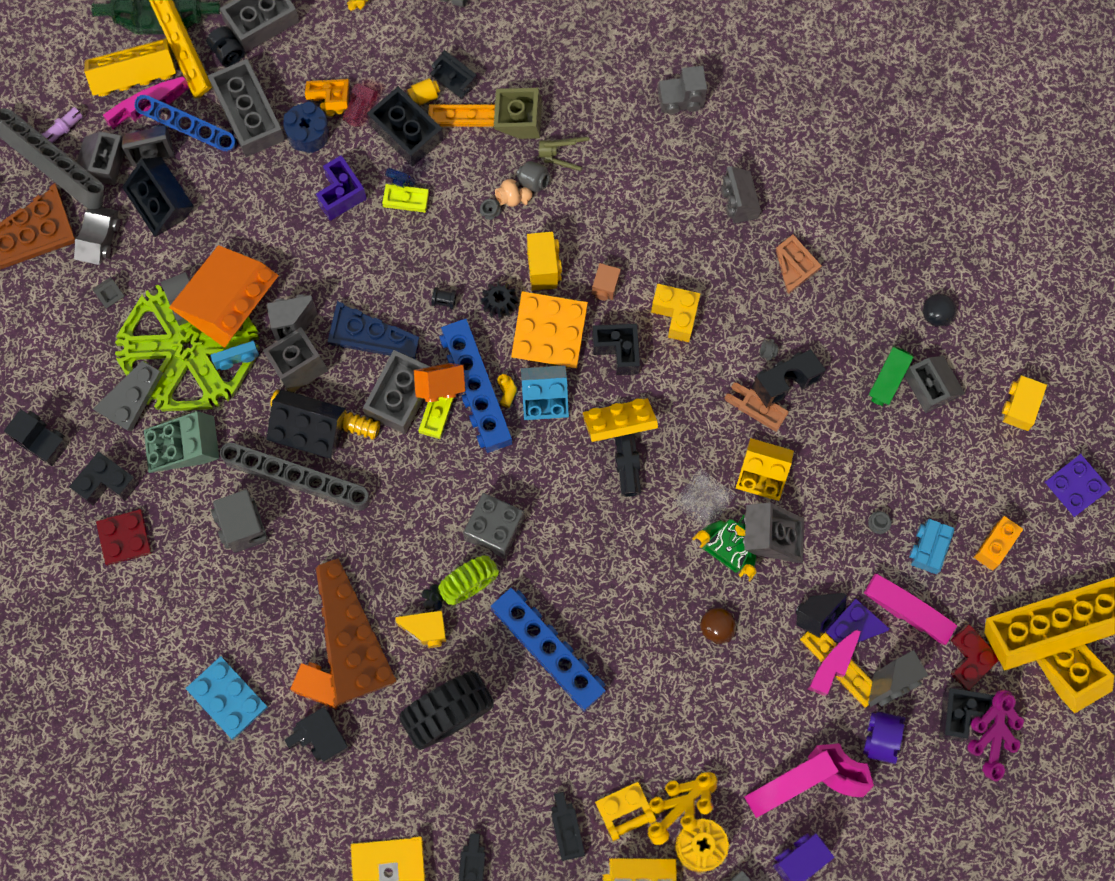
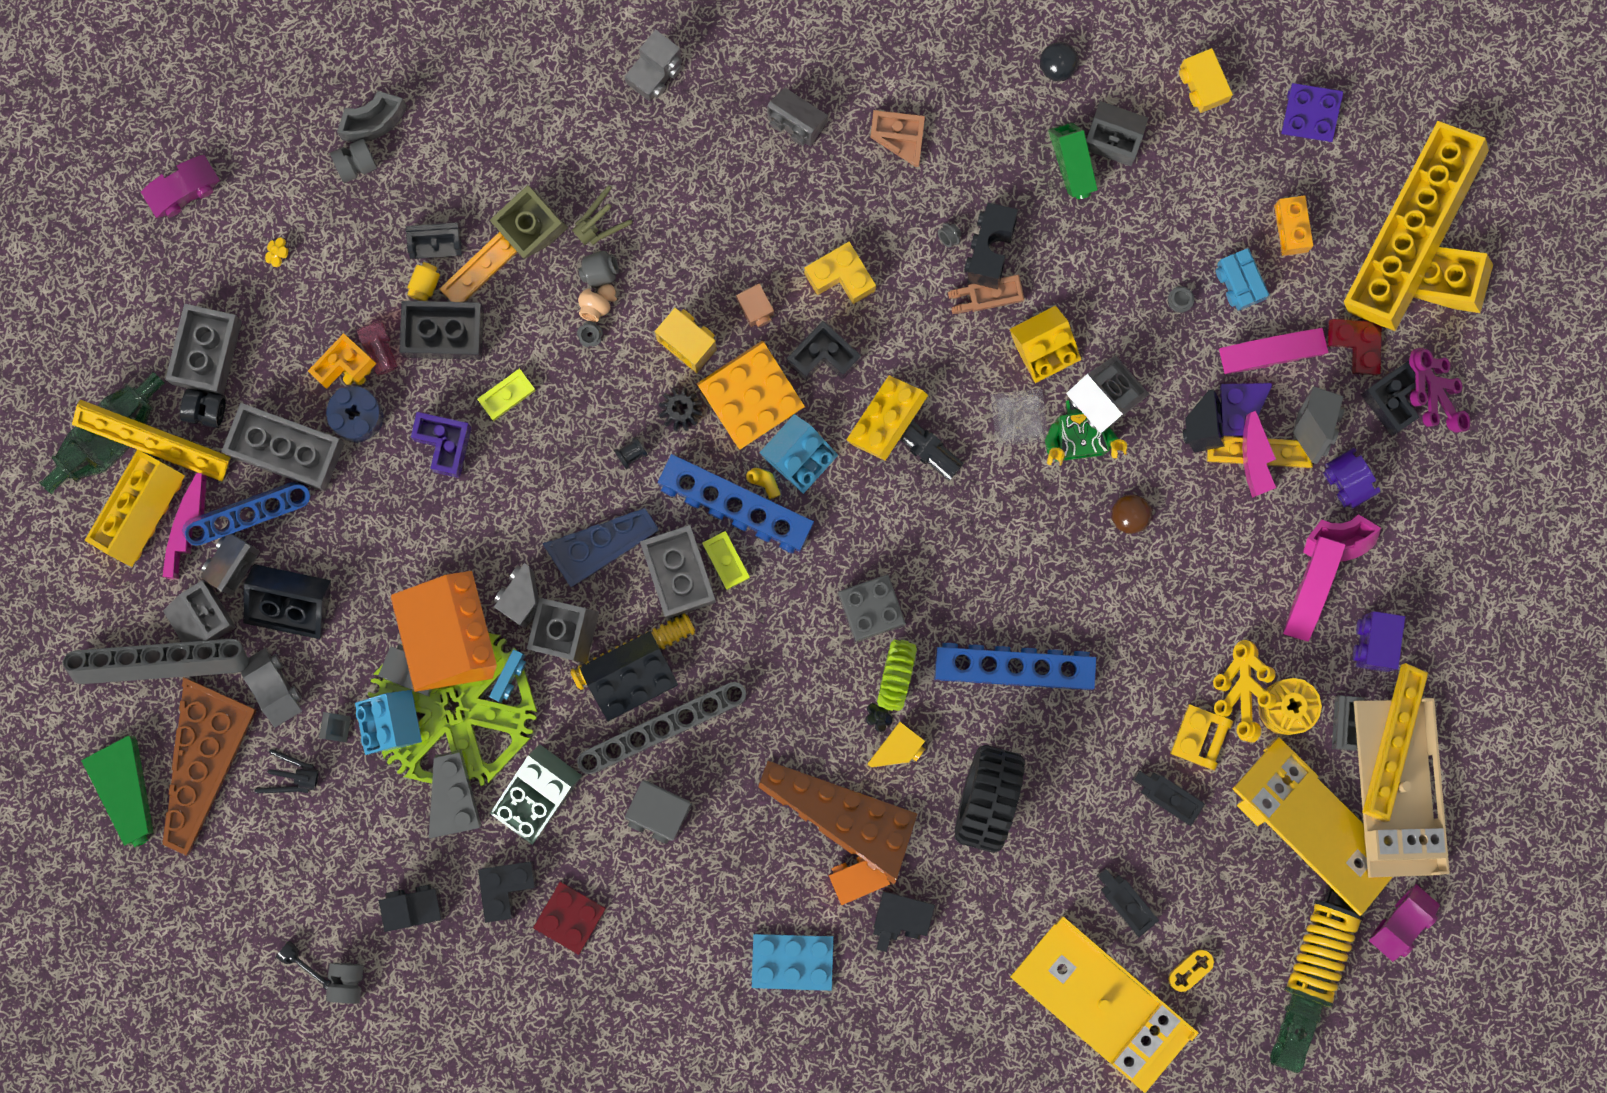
camera: 45 degrees left, 10 degrees up
(61, 305) = (305, 778): none -> black plant
(62, 125) = (131, 619): lavender pin -> none
(139, 315) = (388, 722): none -> dark azure slope
(399, 178) = (487, 382): clear blue plate -> none
(439, 381) = (707, 531): orange brick -> none

